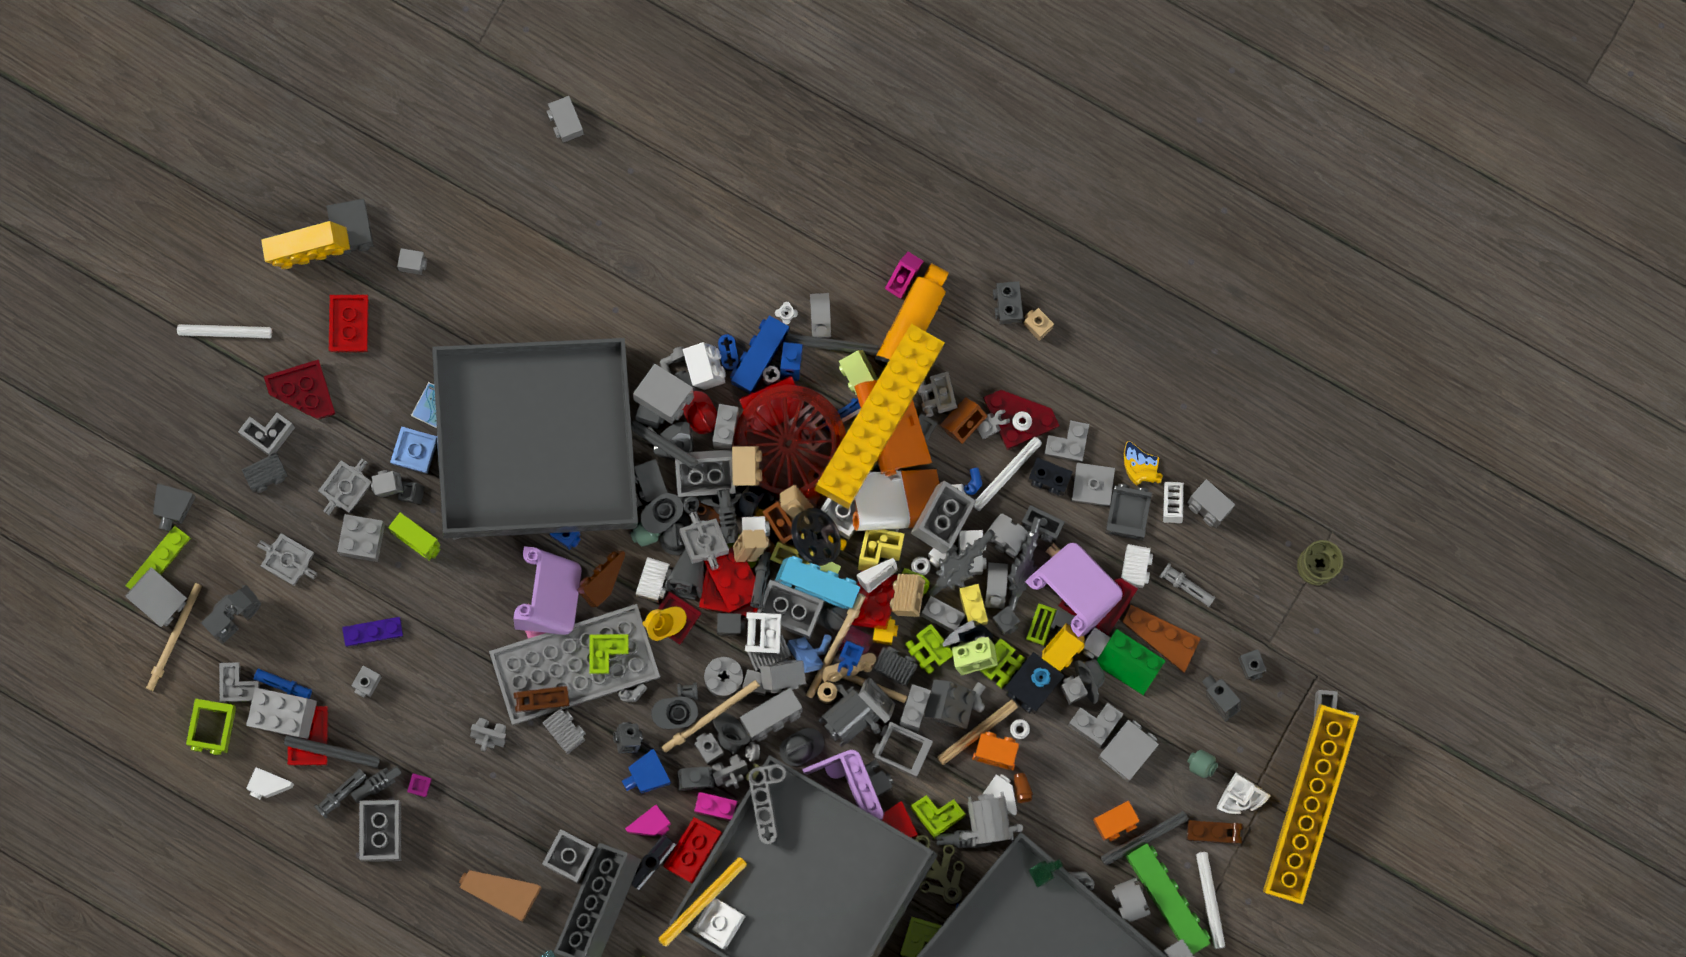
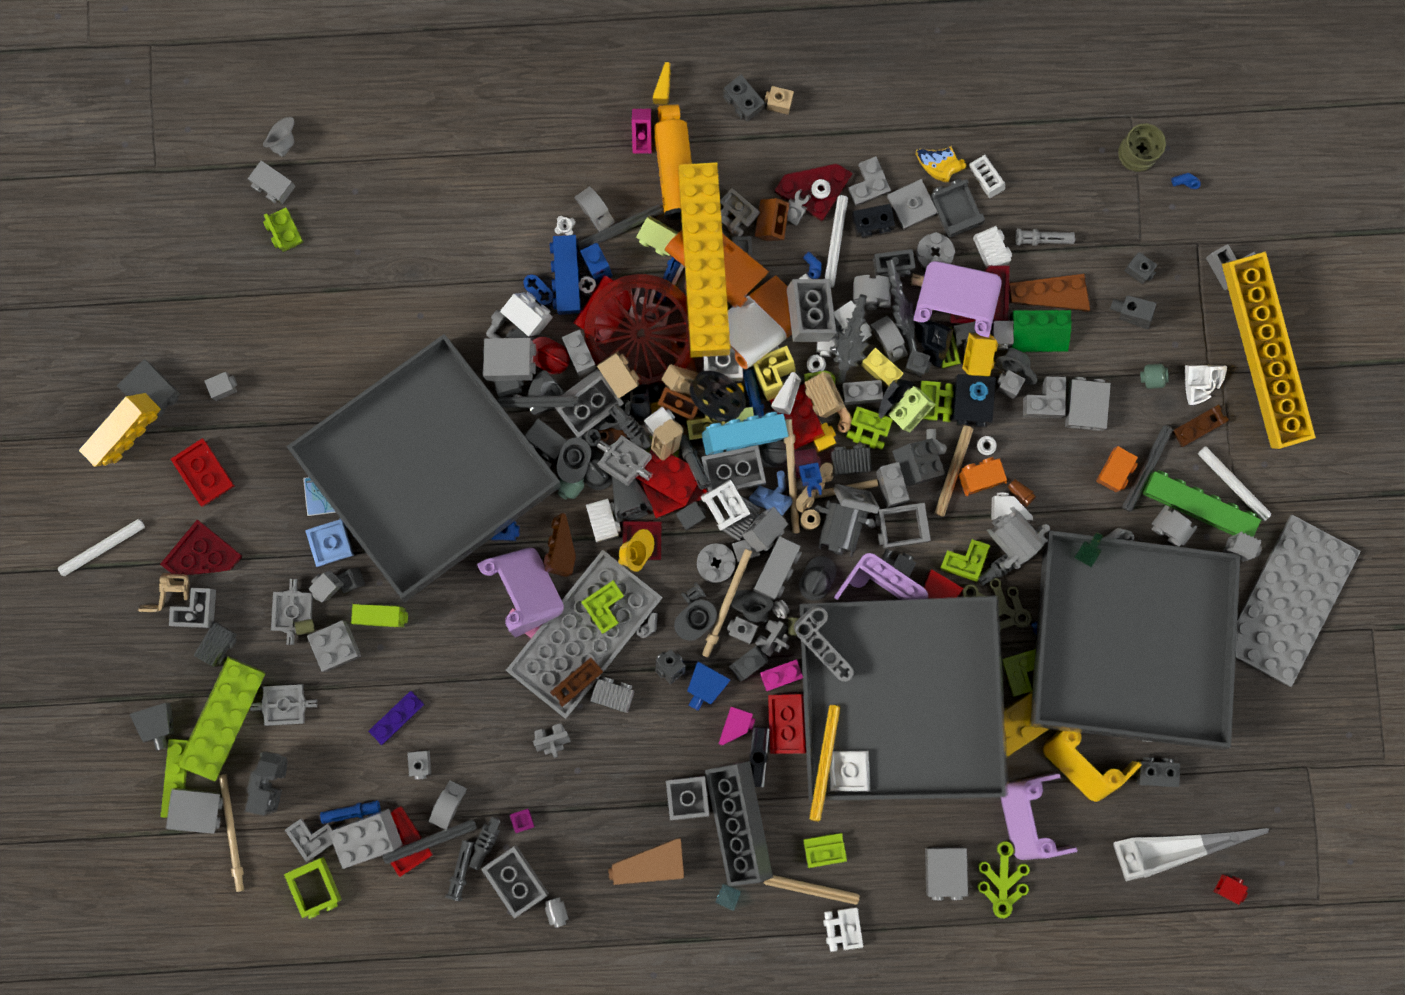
camera: 30 degrees left, 5 degrees up
(229, 536) = (221, 718): none -> lime brick
(259, 398) = (168, 584): none -> tan piece
(266, 784) = (393, 905): white slope -> none
(347, 505) = (304, 626): none -> olive hinge
(366, 730) = (447, 805): none -> light grey brick
(397, 879) = (556, 912): none -> light grey brick
(549, 164) = (283, 229): none -> lime bracket
(598, 86) = (280, 137): none -> light grey piece
(851, 556) = (753, 392): none -> blue pin
(911, 631) = (845, 420): none -> light nougat arm
(944, 251) = (661, 93): none -> yellow slope
(1034, 611) = (934, 339): none -> black brick
(1090, 527) = (934, 241): none -> light grey plate
(1210, 504) = (1021, 157): light grey brick -> none
(1343, 615) = (1186, 179): none -> blue arm

